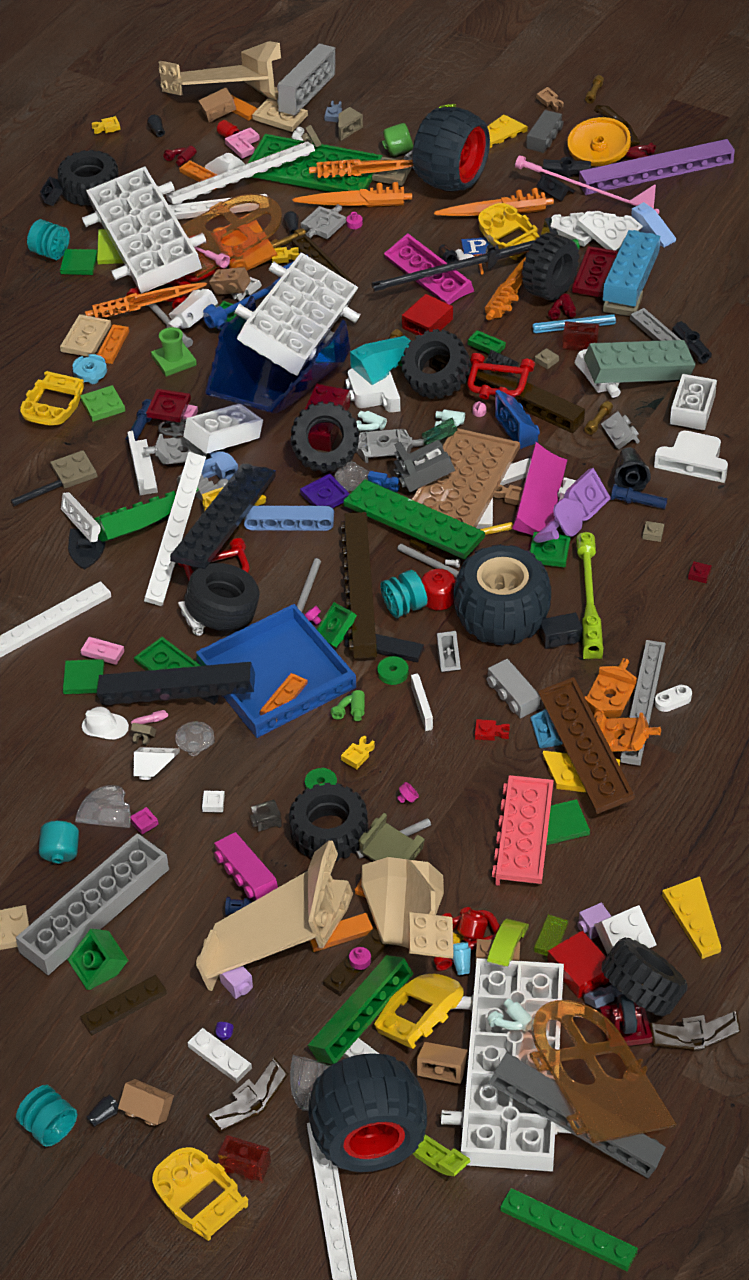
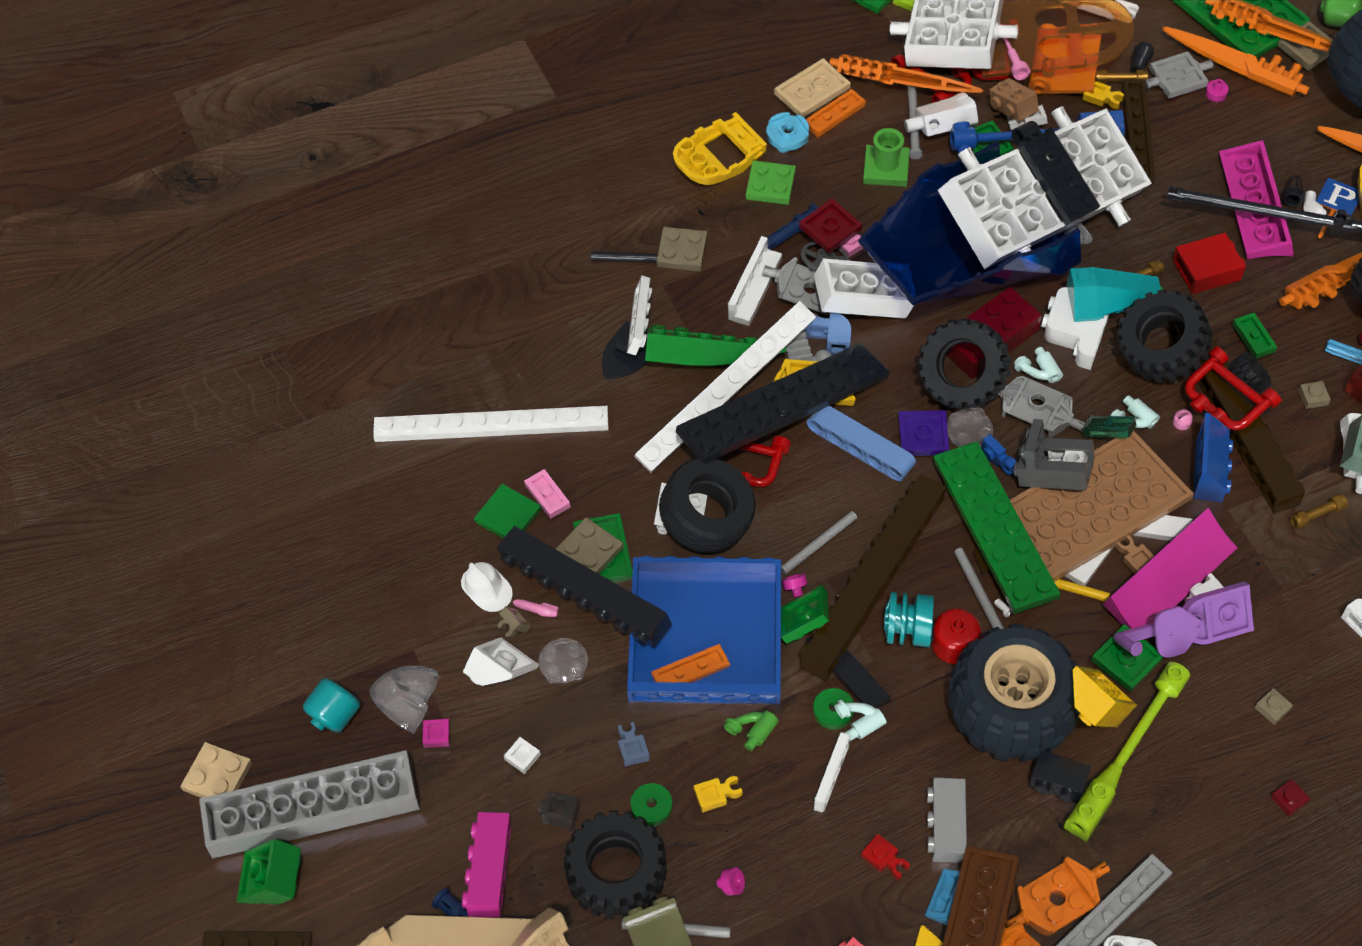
camera: 35 degrees right, 10 degrees up
(160, 658) = (591, 546): none -> dark tan plate
(282, 758) = (632, 747): none -> sand blue plate
(300, 297) = (1056, 176): none -> black hinge
(422, 664) = (864, 726): none -> light aqua plant
(448, 651) = (908, 725): light grey slope -> none
(559, 567) = (1099, 699): none -> yellow slope
(619, 430) = (1332, 544): light grey bracket -> none
(630, 495) = (1279, 641): dark blue pin -> none
(631, 470) = (1302, 609): black cone -> none

